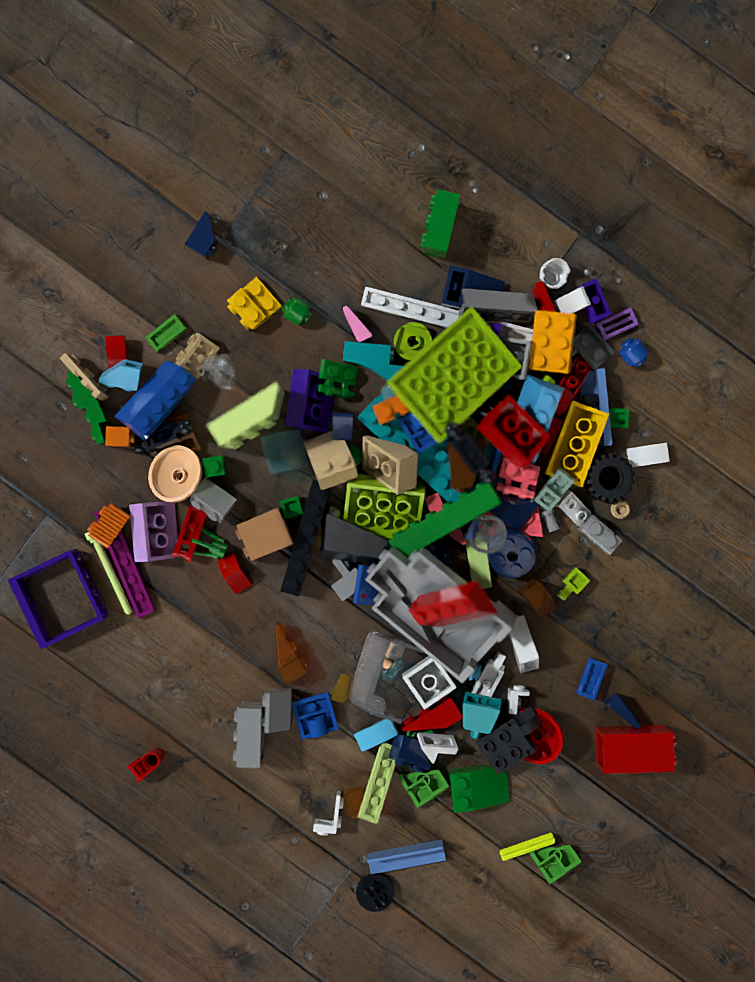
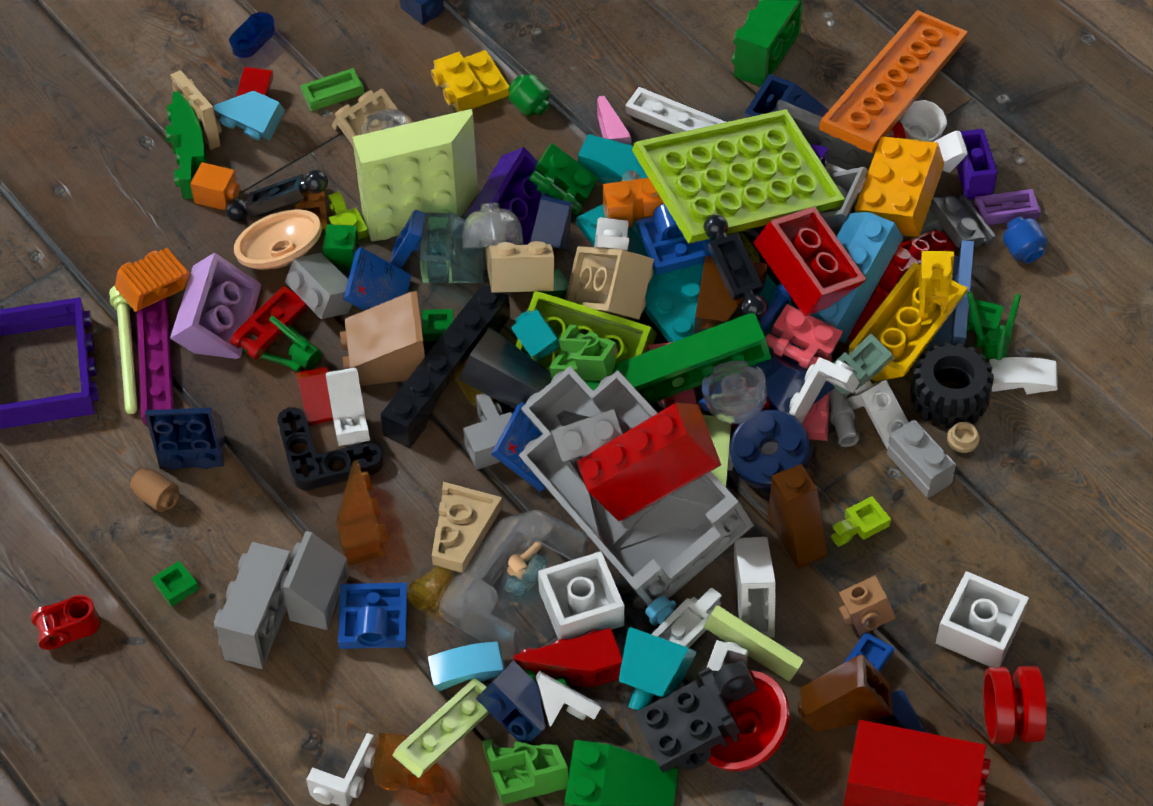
camera: 15 degrees right, 35 degrees down
(97, 302) = (252, 34): none -> clear blue plate
(156, 399) = (290, 151): blue slope -> none
(164, 666) = (154, 489): none -> medium nougat brick
(170, 633) = (187, 437): none -> dark blue slope
(197, 723) = (175, 583): none -> green plate
(209, 442) = (346, 217): none -> lime plate
(247, 492) = (374, 281): none -> blue tile
(251, 622) = (319, 463): none -> black beam
(255, 454) = (408, 239): none -> blue plate
(260, 589) = (347, 407): none -> white bracket
(309, 445) = (491, 227): none -> clear cylinder
(348, 646) = (462, 525): none -> tan wing
(356, 513) = (536, 334): none -> teal brick
(385, 438) = (611, 234): none -> white bracket
(390, 525) = (586, 354): none -> bright green slope
(410, 593) = (586, 435): none -> light grey brick
(531, 248) = (893, 81): none -> orange plate
(531, 685) = (759, 645): none -> yellowish green tile
(544, 506) = (837, 374): none -> white bracket
(590, 712) = (846, 696): none -> reddish brown slope
(592, 427) = (935, 280): none -> yellow hinge
(594, 643) = (866, 606): none -> medium nougat brick
(628, 438) = (995, 342): none -> green plant
(653, 638) = (981, 620): none -> white brick
(681, 690) = (1014, 704): none -> red wheel

